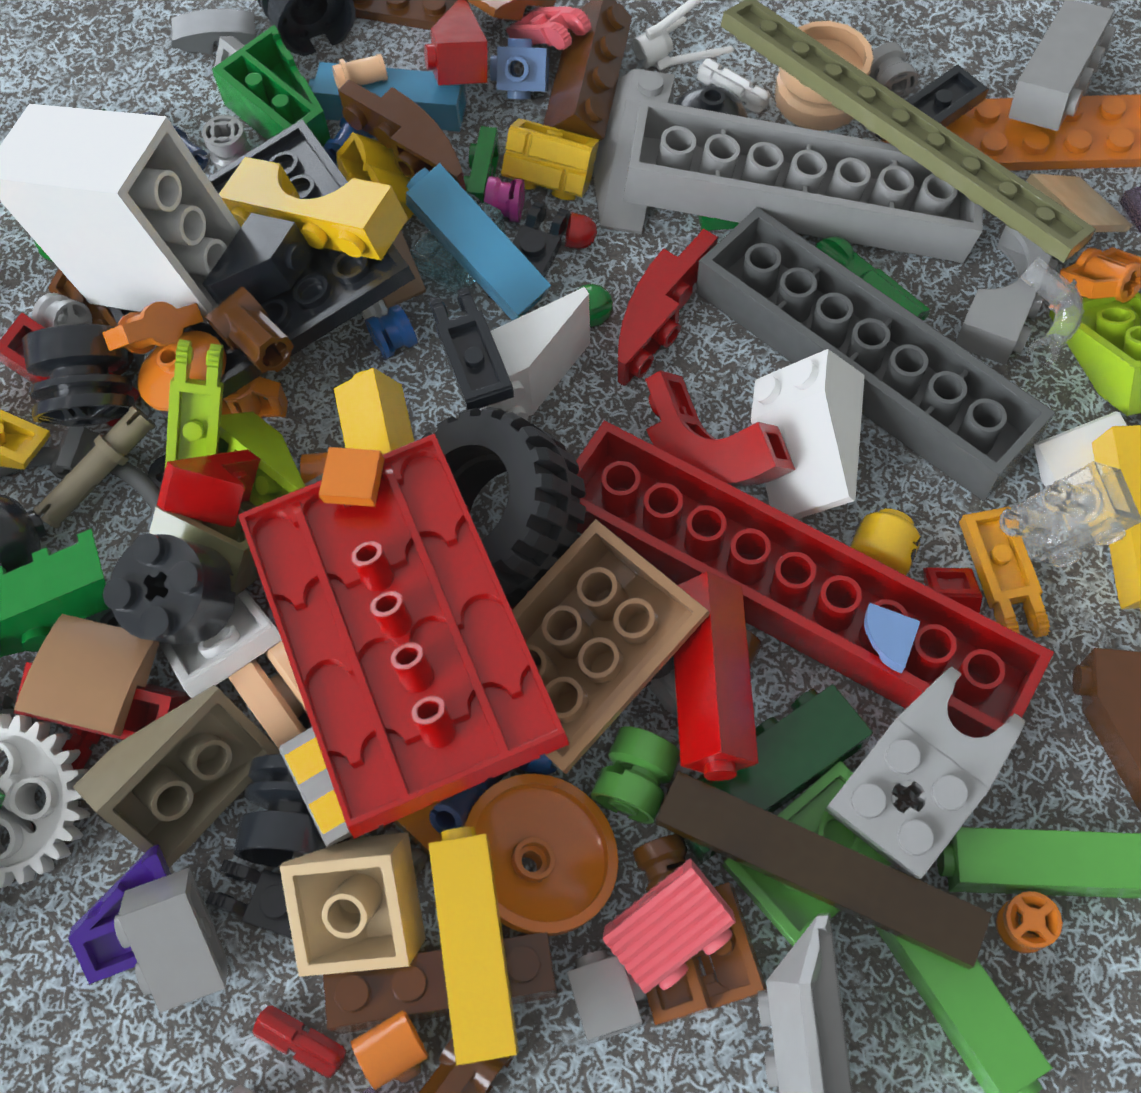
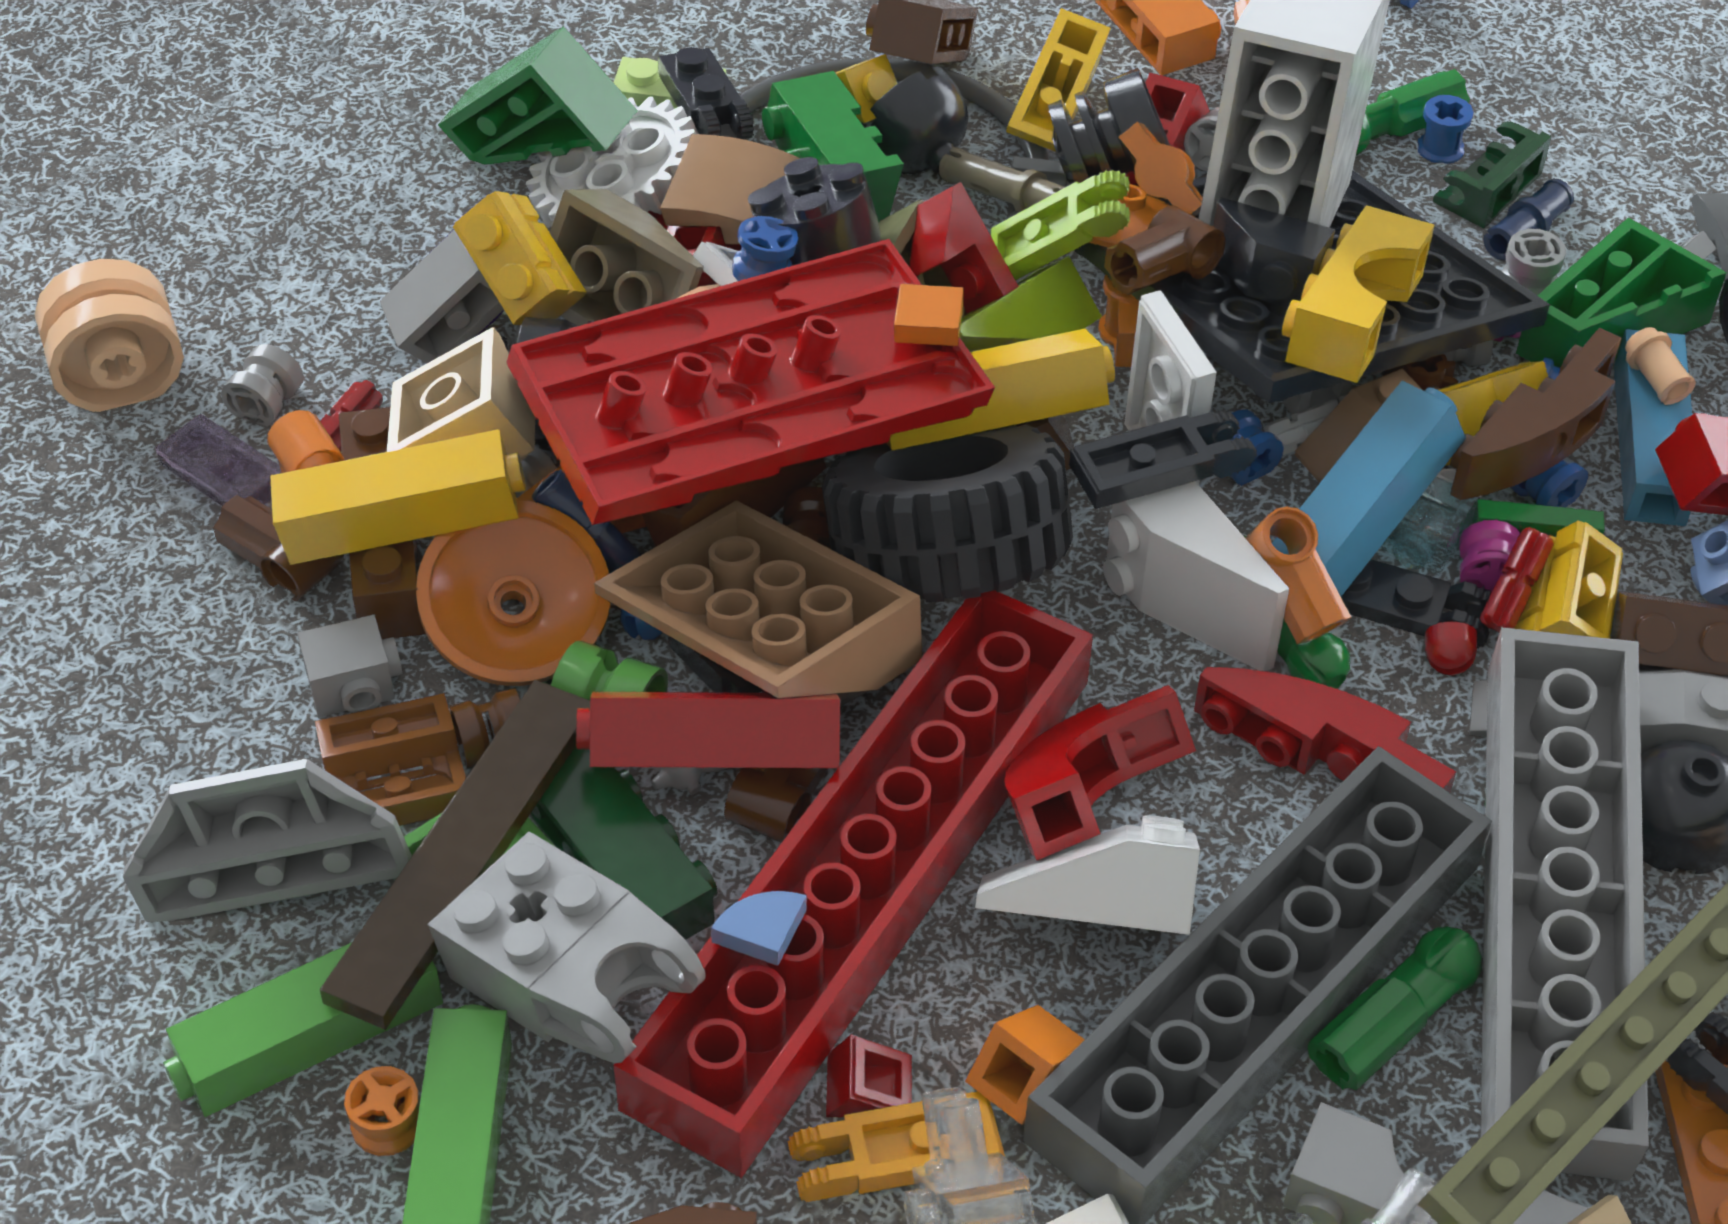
camera: 85 degrees right, 15 degrees down
(172, 856) = (519, 258): none -> yellow brick
(207, 623) = (764, 247): none -> blue wheel
(376, 338) = (1167, 368): none -> white tile
(532, 173) = (1518, 577): none -> red piece
(546, 283) = (1312, 599): none -> orange piece
(669, 928) = (410, 698): coral brick -> none
(888, 538) = (936, 992): yellow head -> none
(947, 485) = (1020, 1057): none -> orange brick

